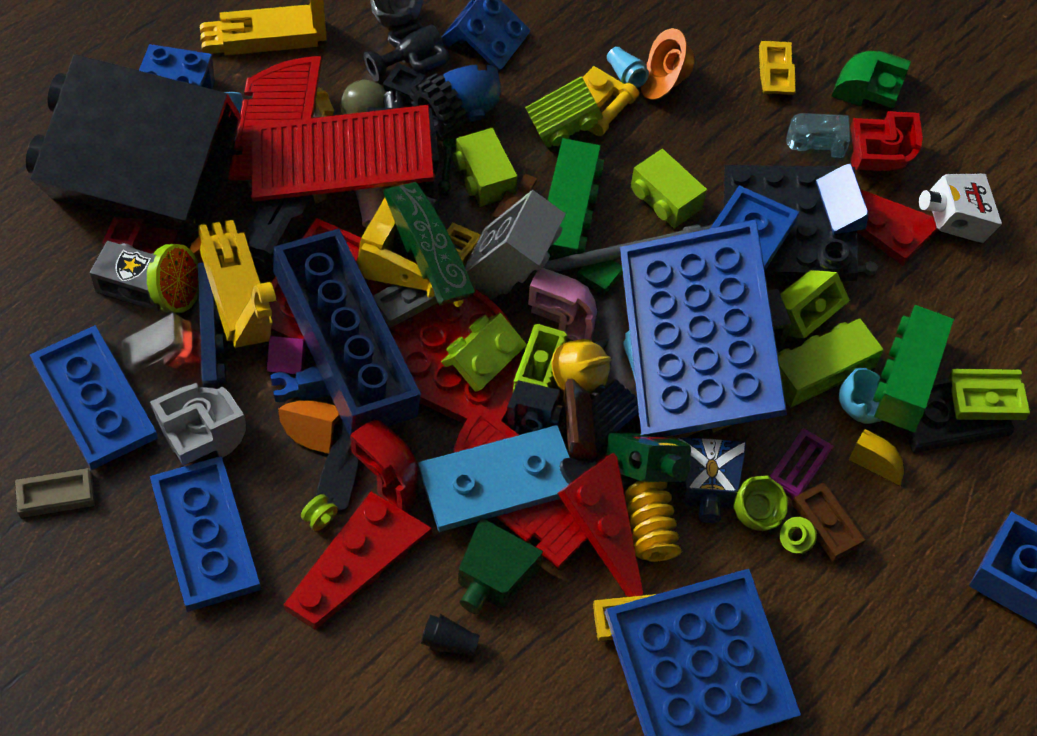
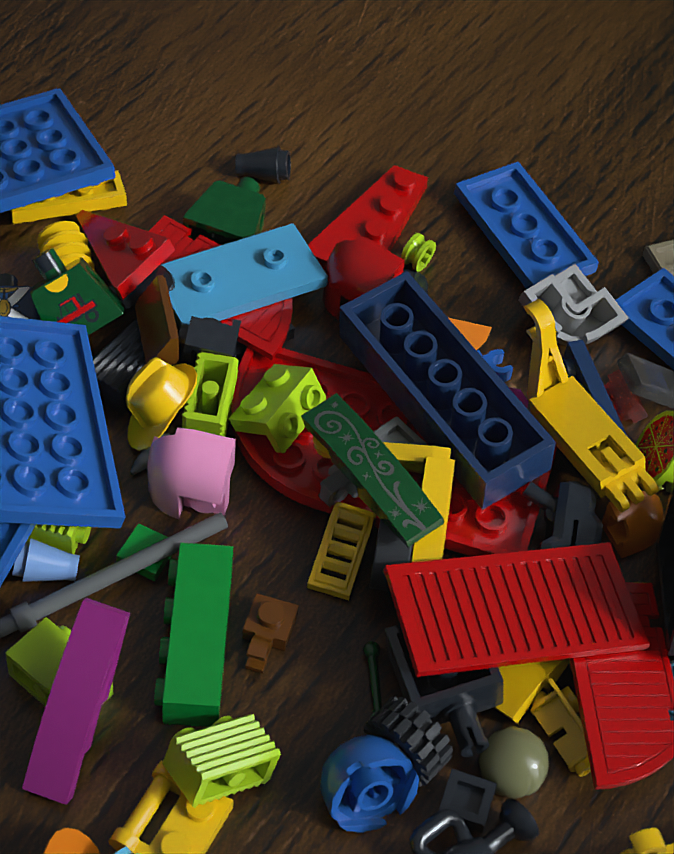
camera: 170 degrees right, 5 degrees down
(484, 166) = (321, 671): lime brick -> none
(514, 245) = (265, 504): light grey brick -> none
(659, 141) = (76, 700): none -> magenta slope

